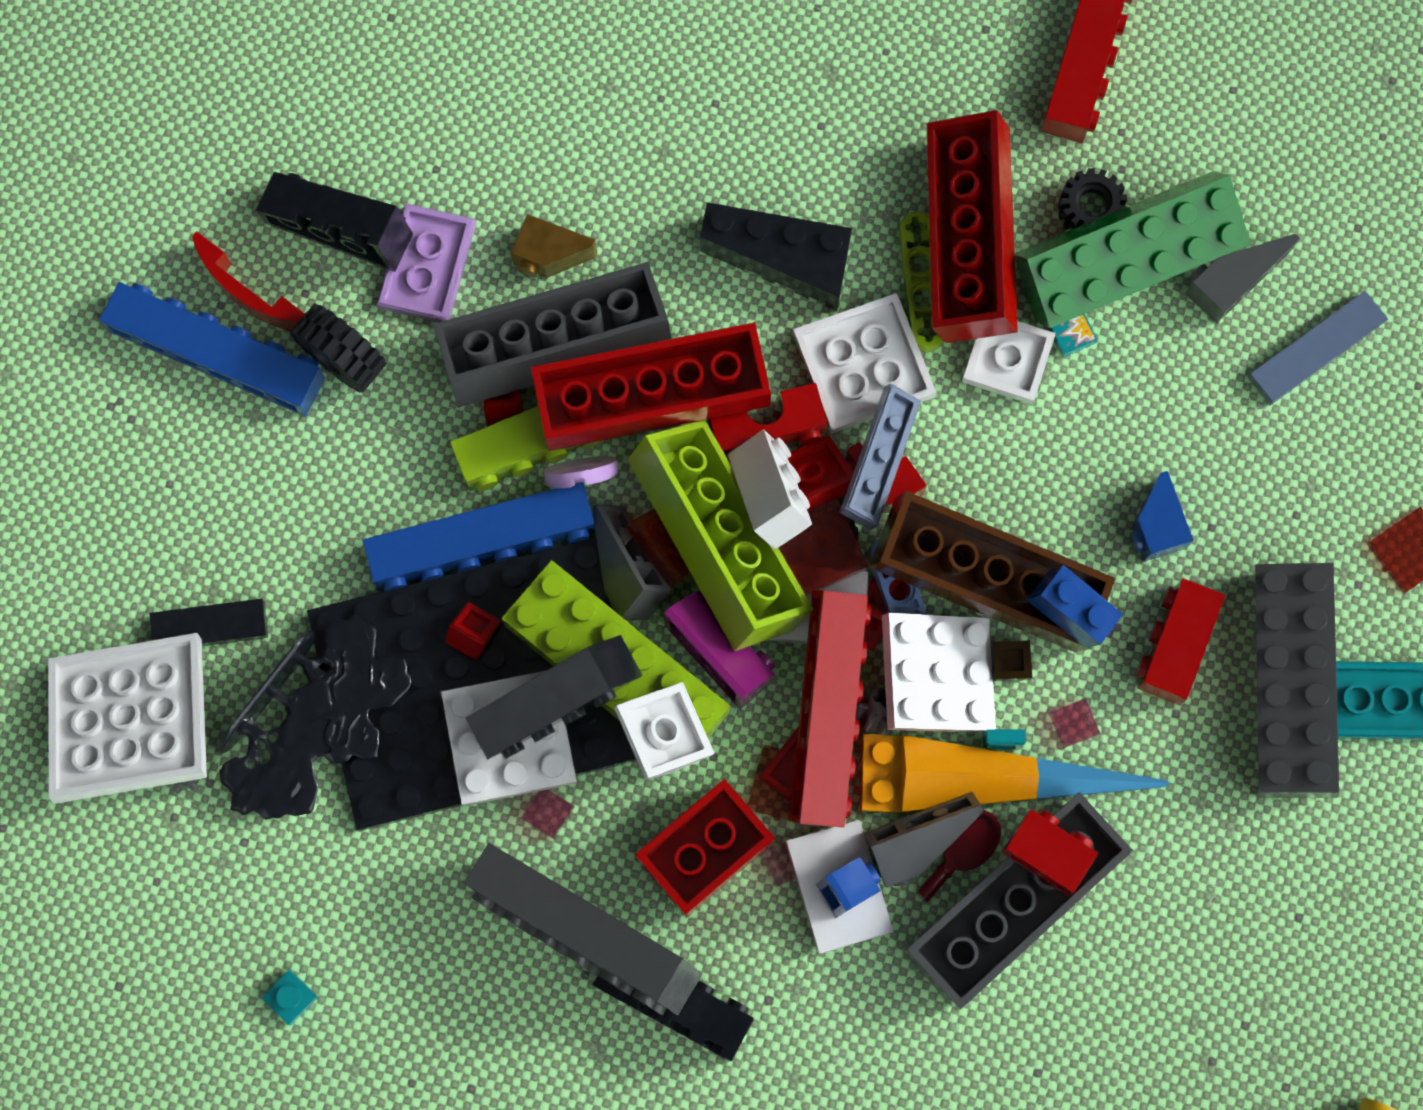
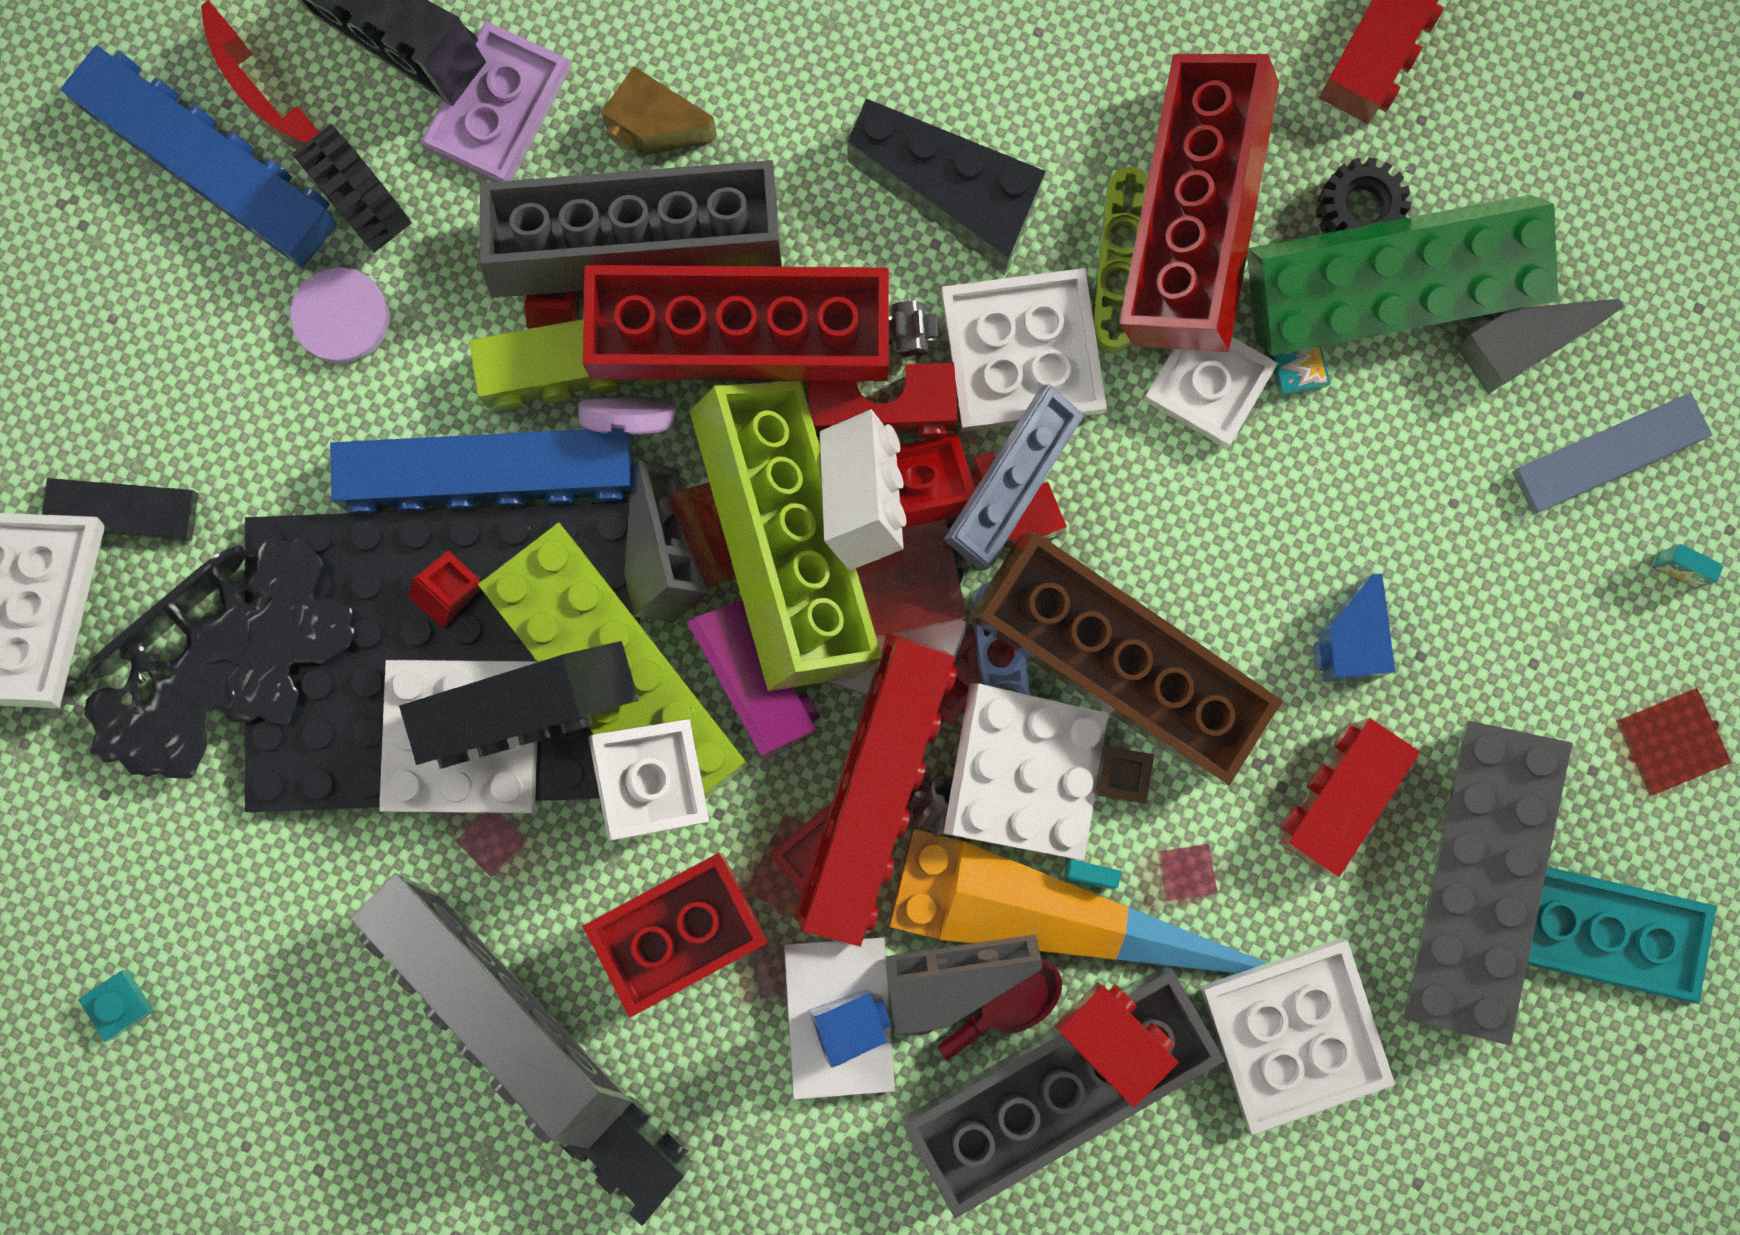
camera: 10 degrees right, 5 degrees up
(343, 445) = (339, 315): none -> lavender tile
(779, 365) = (911, 329): none -> dark grey gear
(1075, 607) = (1221, 730): blue brick -> none
(1183, 825) = (1297, 1035): none -> white plate
(1392, 418) = (1688, 566): none -> teal tile

